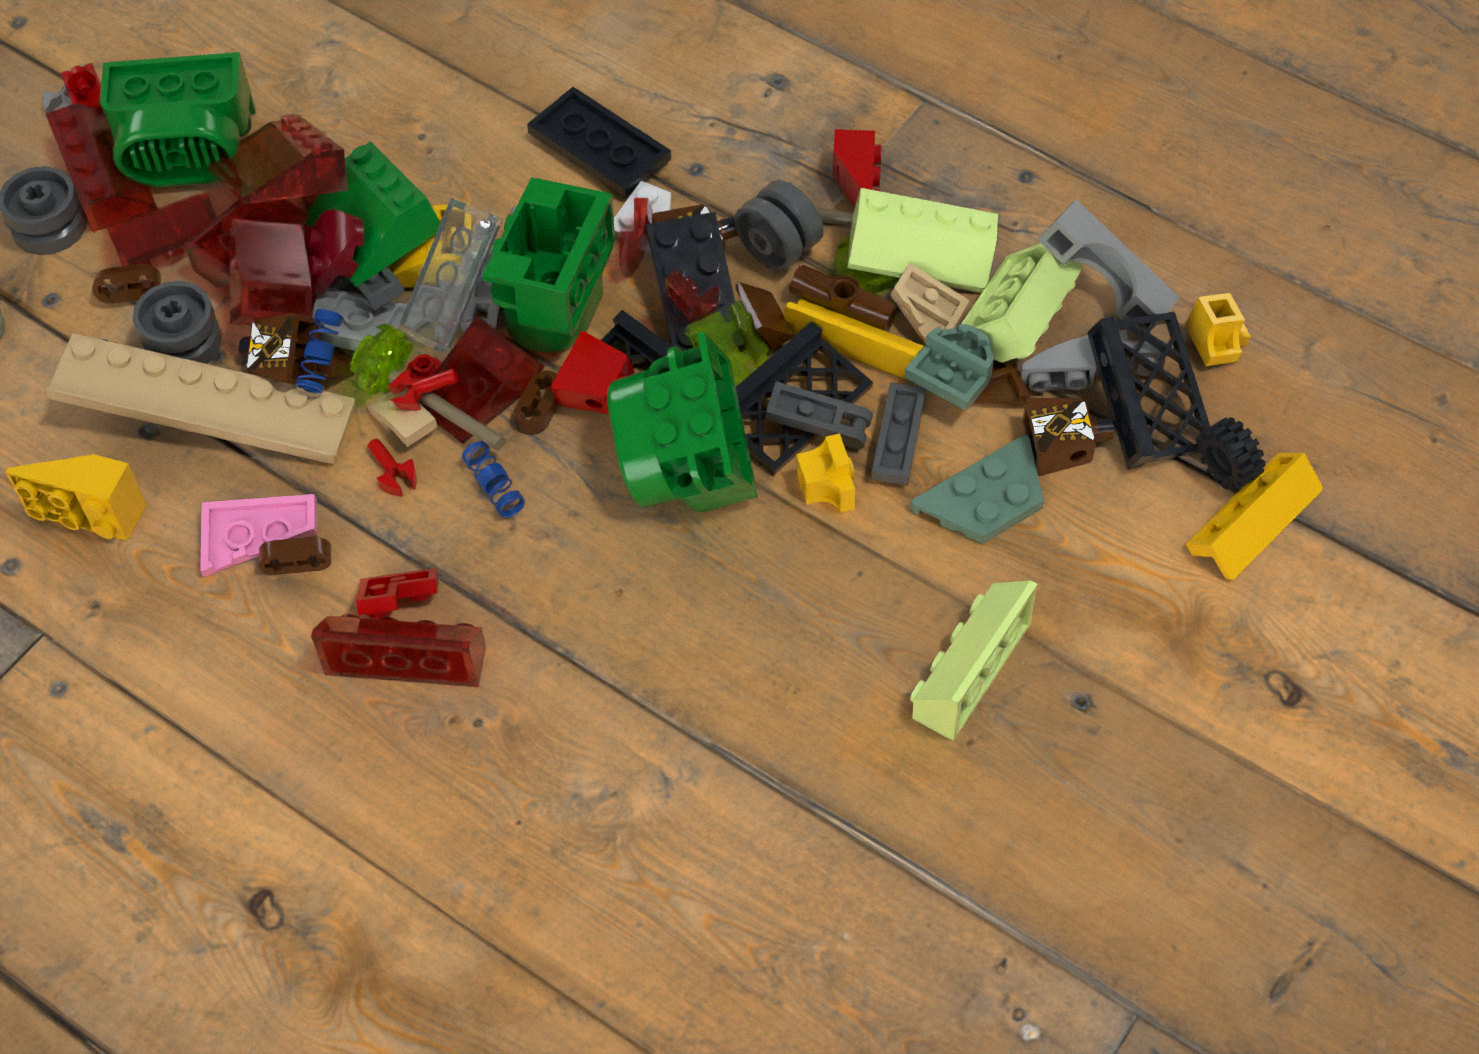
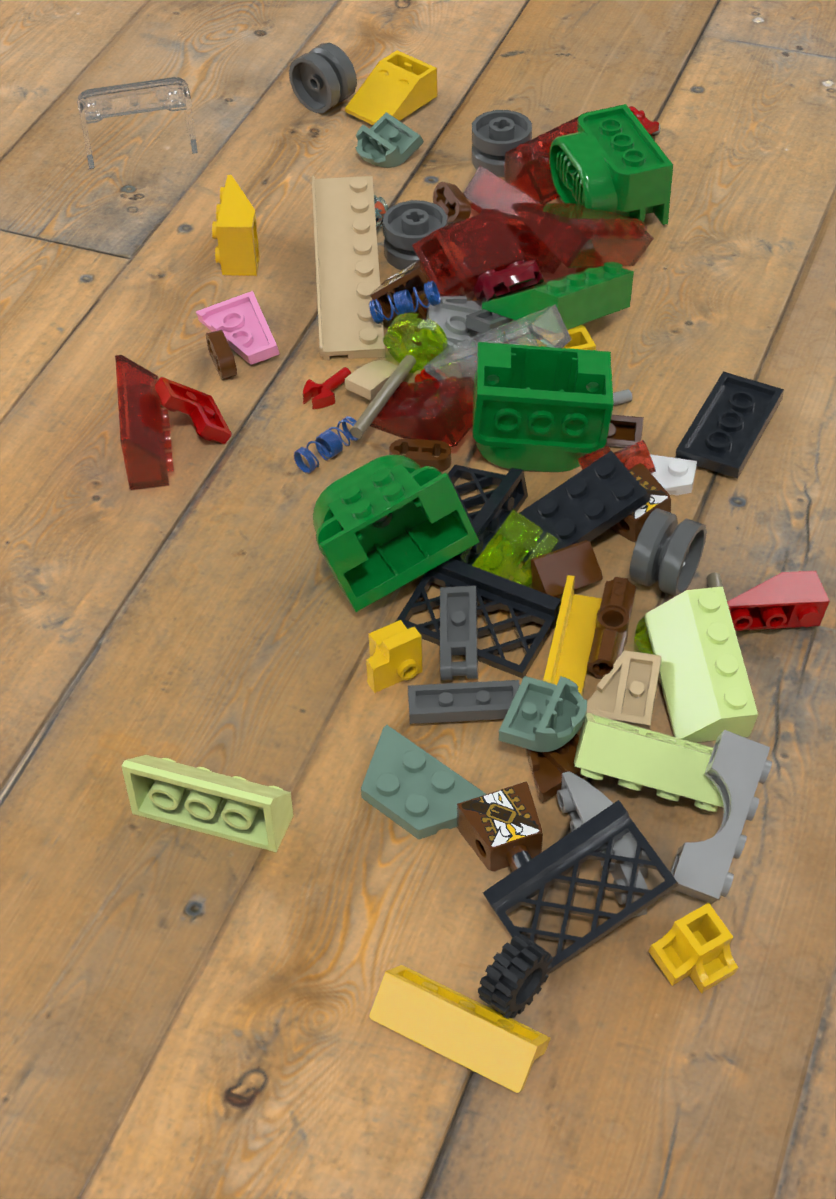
camera: 75 degrees right, 10 degrees down
(417, 388) = (394, 368): red bar -> none
(588, 373) = (460, 461): red torso -> none
(685, 295) = (542, 499): clear red bracket -> none

